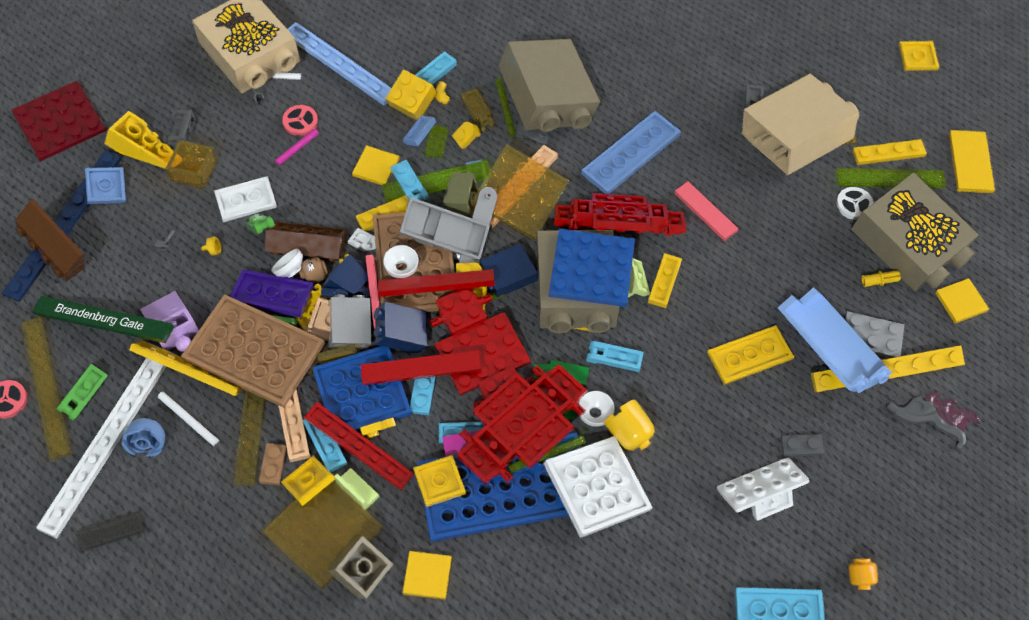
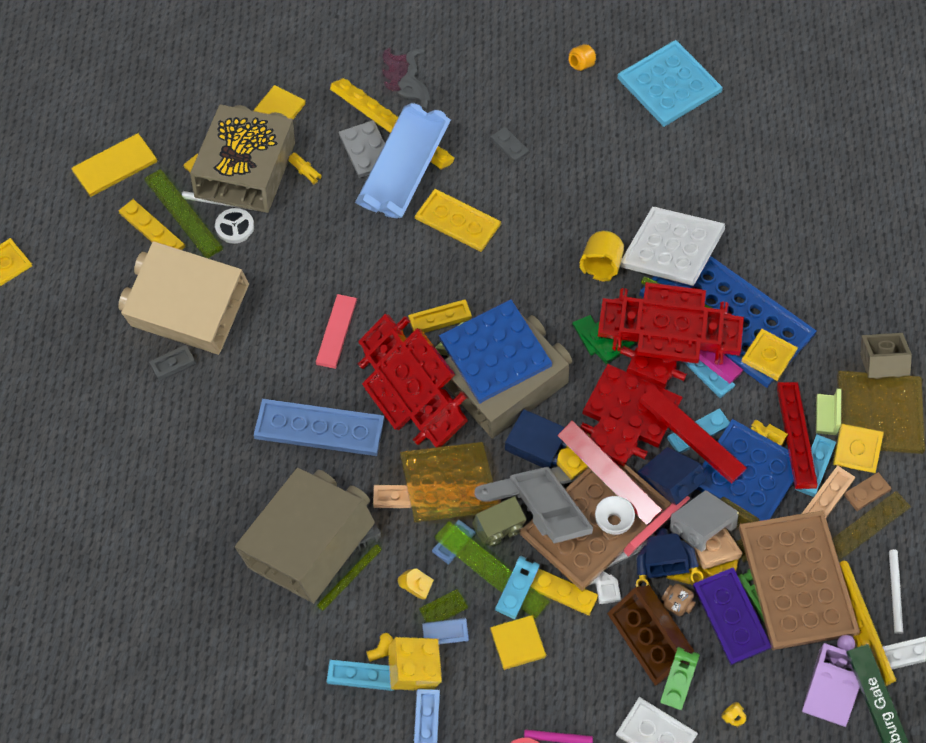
camera: 125 degrees left, 0 degrees up
(288, 264) = (700, 626): white piece -> none
(427, 575) = (841, 318): yellow tile -> none
(477, 108) = (374, 598): clear yellow plate -> none
(598, 400) = (605, 282): white piece -> none
(615, 356) = (546, 309): medium azure plate -> none
(764, 489) = (569, 148): white bracket -> none

